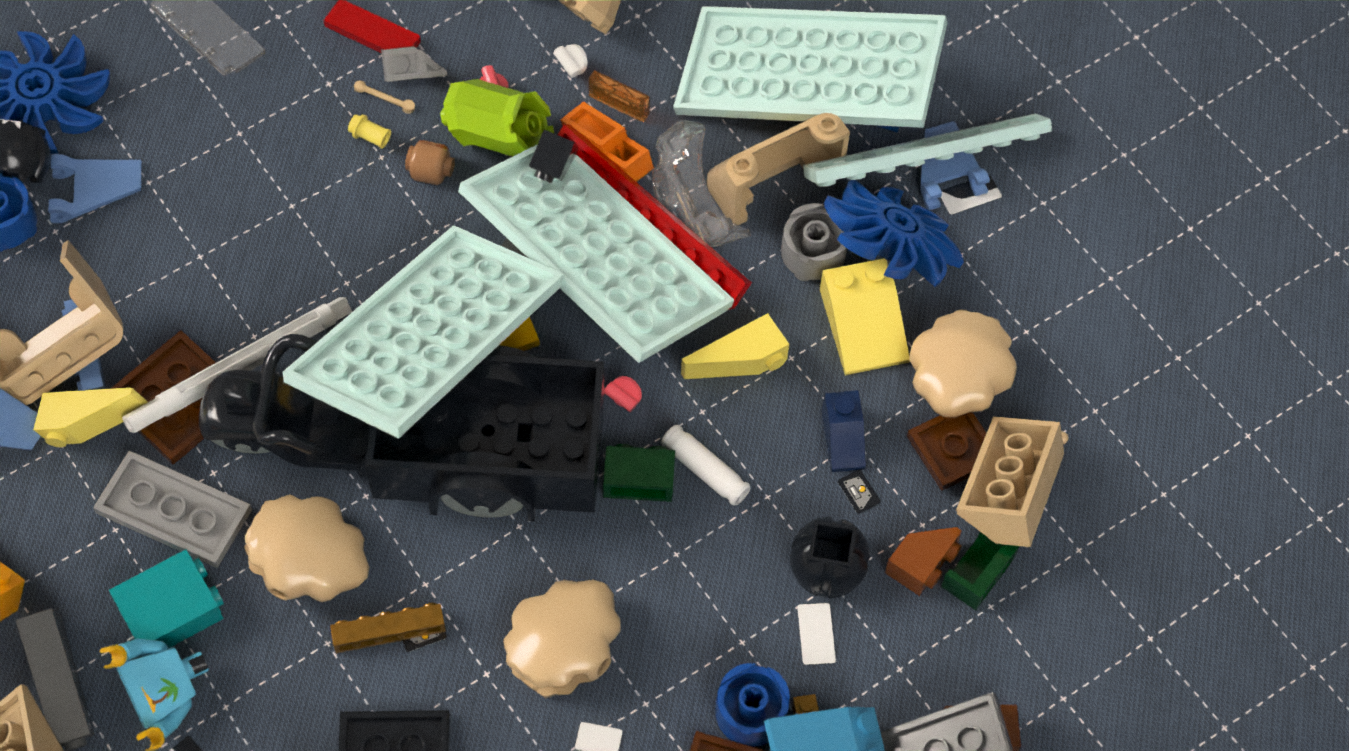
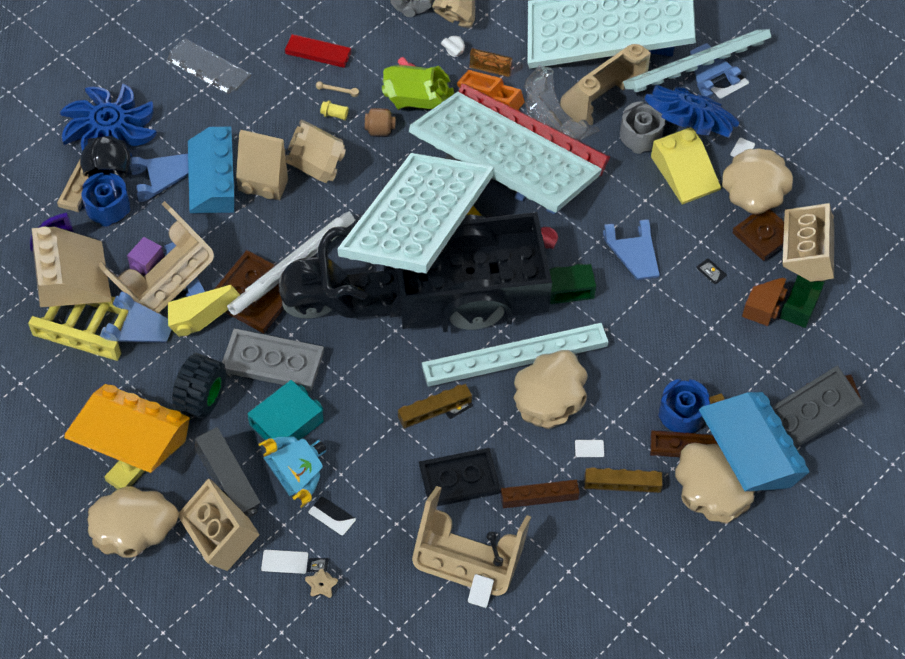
camera: 10 degrees left, 5 degrees down
(32, 312) = (145, 256): none -> medium lavender brick
(49, 534) = (199, 385): none -> black wheel
(165, 196) = (211, 171): none -> dark azure slope
(232, 205) = (261, 165): none -> tan slope
(305, 549) = (369, 366): tan piece -> none
(318, 195) = (315, 152): none -> tan brick
(409, 64) = (349, 65): light grey slope -> none
(525, 569) = (512, 354): none -> light aqua plate
(553, 157) = (464, 100): black slope -> none
(706, 465) = (612, 271): white axle -> none
(740, 353) = (613, 201): light yellow slope -> none
(752, 440) = (636, 252): none -> medium blue flag
(816, 633) = (709, 360): white sticker -> none
(829, 575) = (706, 320): black piece -> none
(844, 430) = (692, 235): dark blue slope -> none
(963, 299) = (741, 146): none -> white sticker

